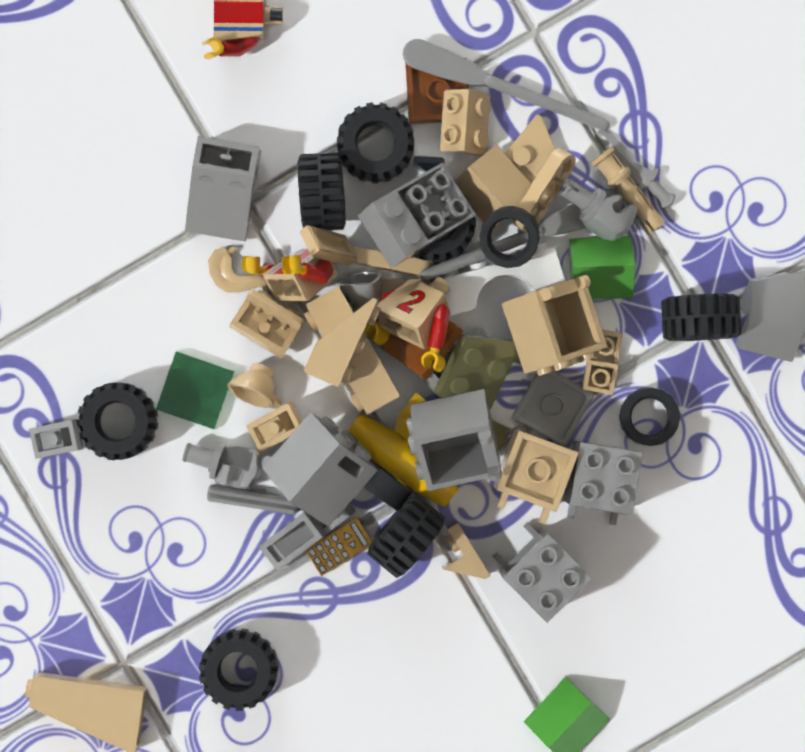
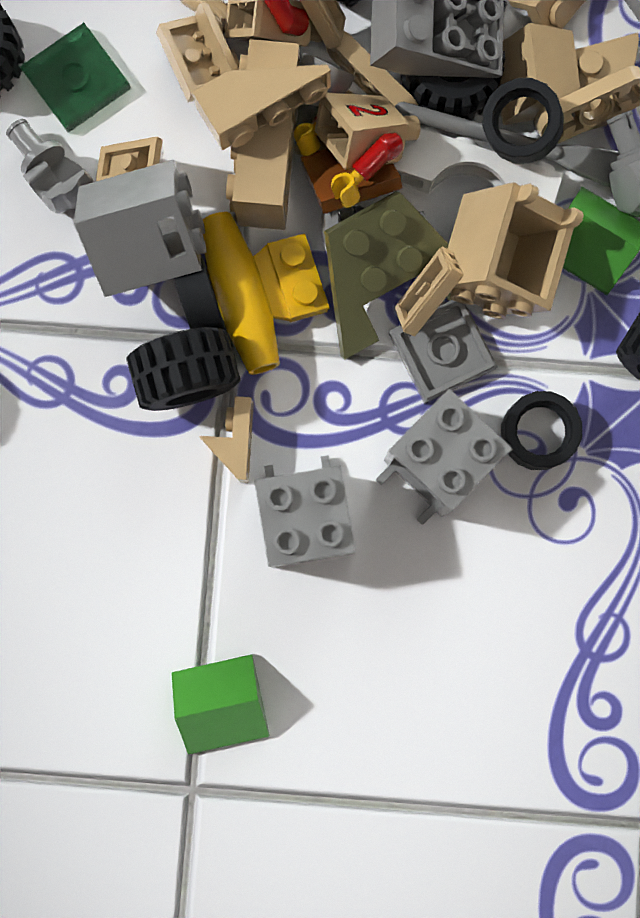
camera: 45 degrees right, 5 degrees down
(250, 499) = (49, 226): light grey axle -> none
(255, 387) = (138, 108): tan piece -> none
(298, 537) = (80, 298): light grey slope -> none
(339, 546) = (104, 340): tile -> none
(454, 440) = (327, 299): light grey container -> none
(522, 382) = (428, 291): none -> tan tile
(535, 472) = (374, 391): tan container -> none
(602, 371) = (528, 339): tan slope -> none

